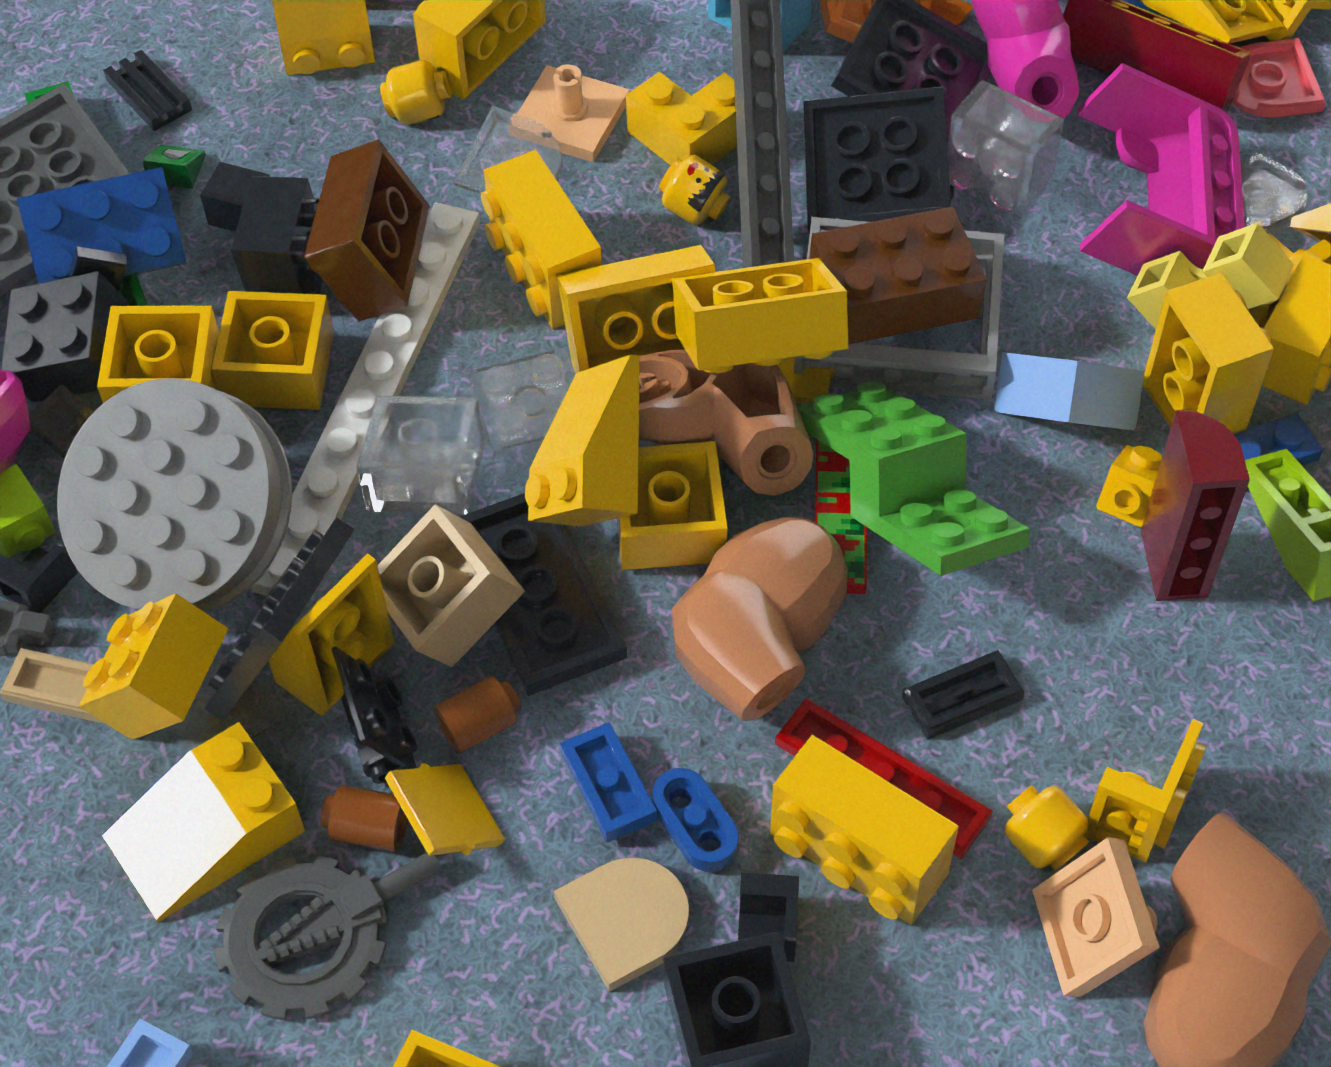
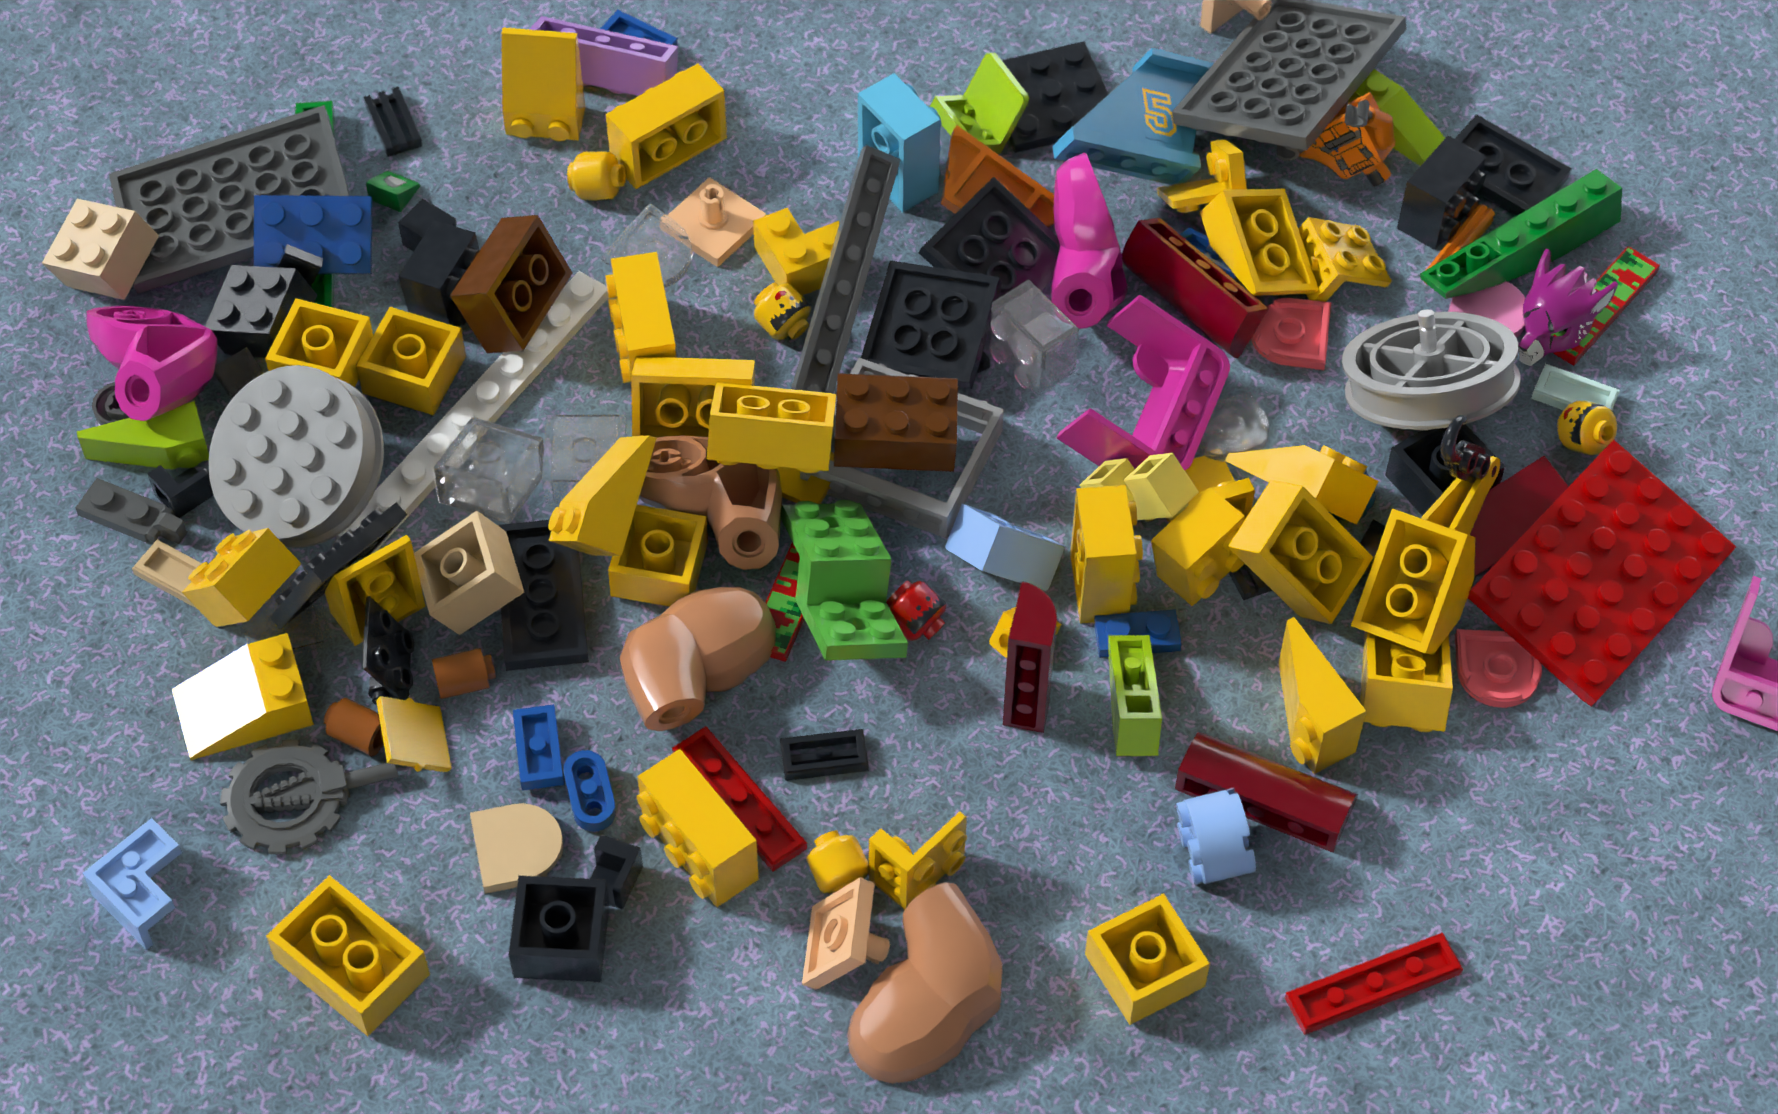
camera: 15 degrees right, 0 degrees up
(1005, 486) = (917, 610): none -> red head

